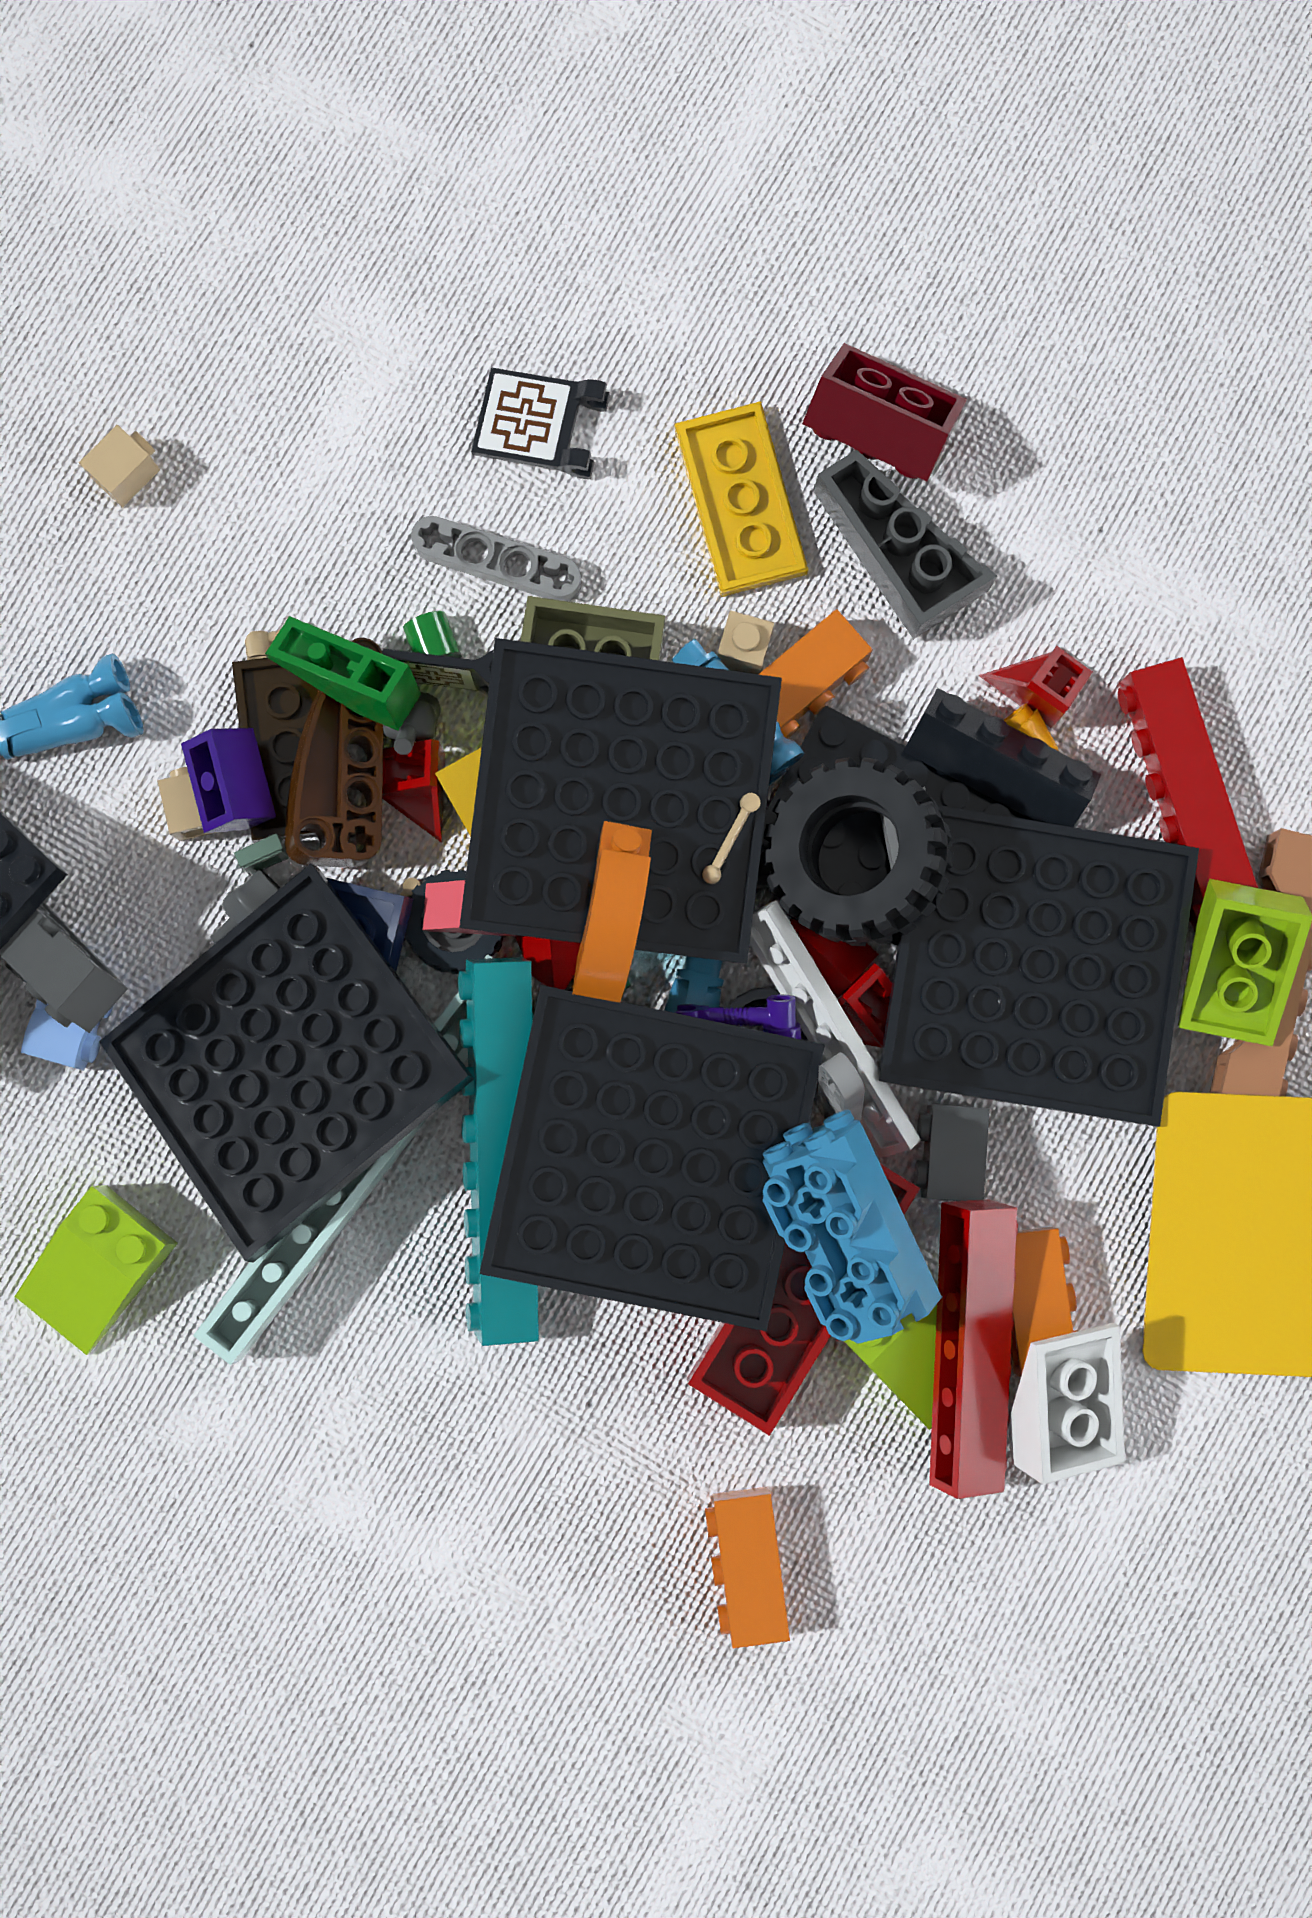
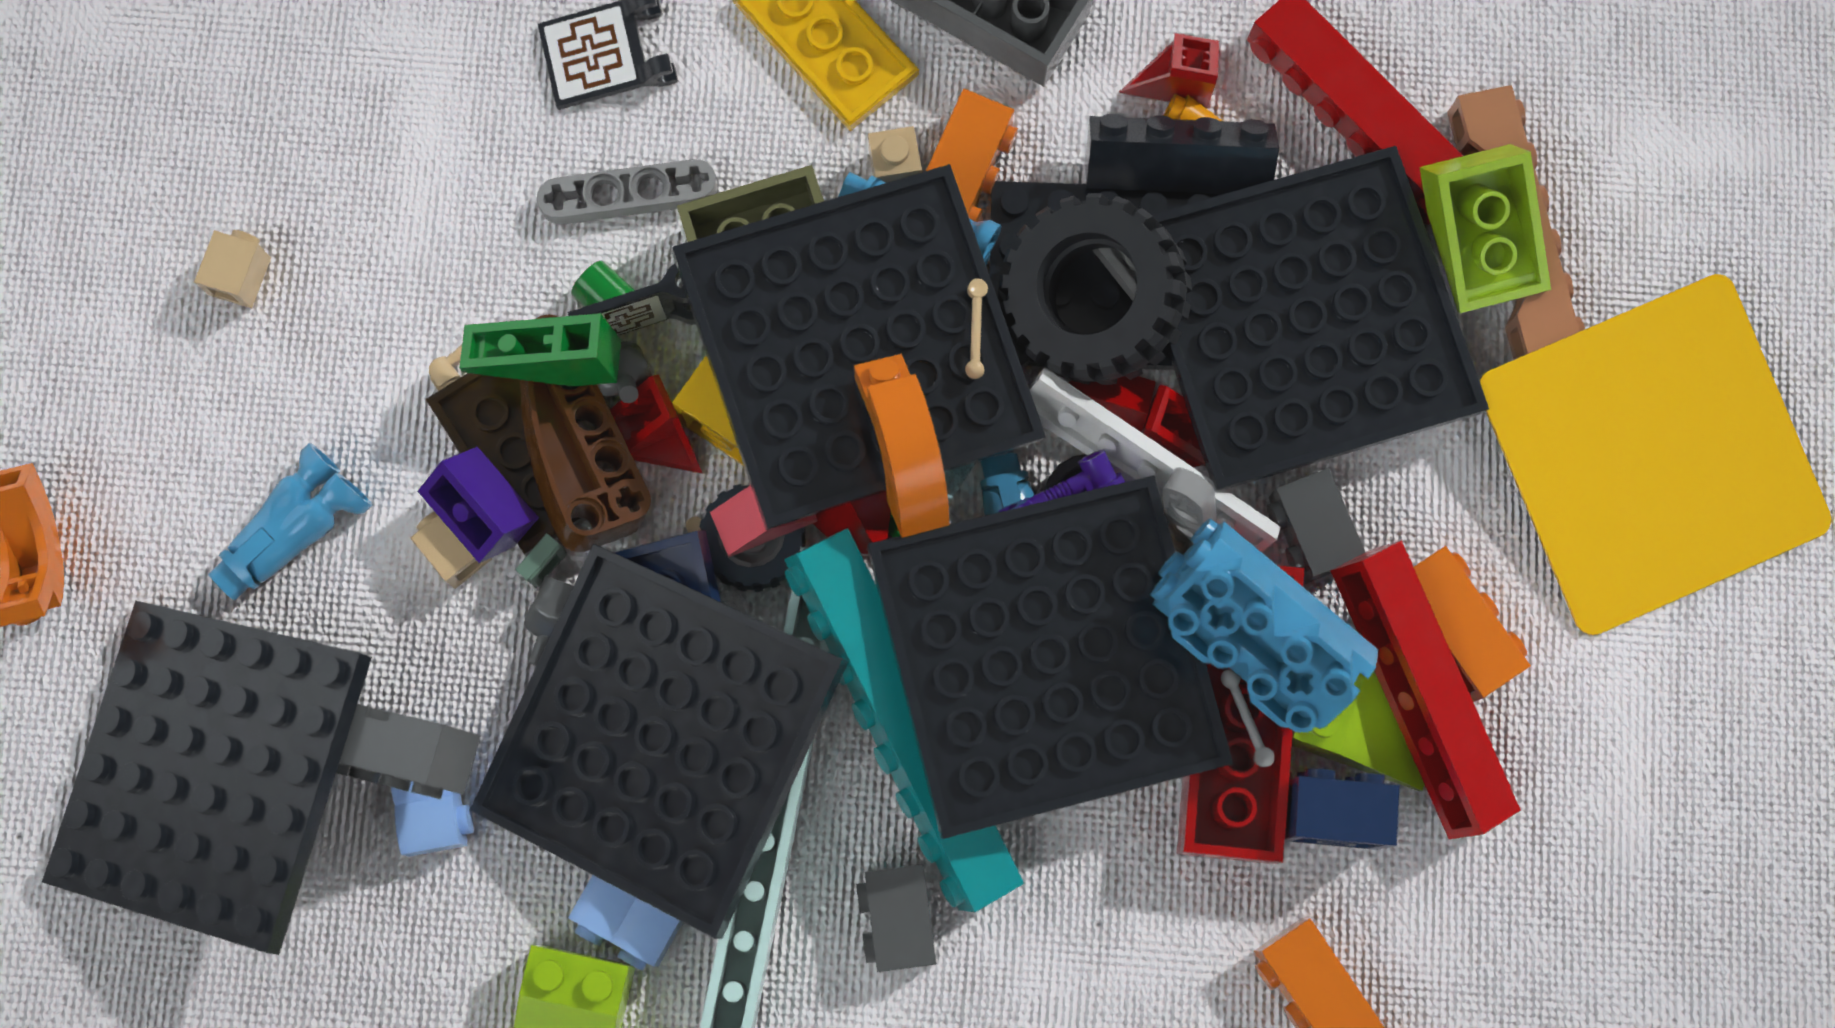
camera: 25 degrees left, 5 degrees down
(186, 1213) = (626, 922): none -> light blue brick
(417, 1316) = (898, 918): none -> dark grey brick
(798, 1335) = (1262, 756): none -> light grey hinge
(842, 1417) = (1342, 812): none -> dark blue brick
(1069, 1406) = (1539, 699): white slope -> none

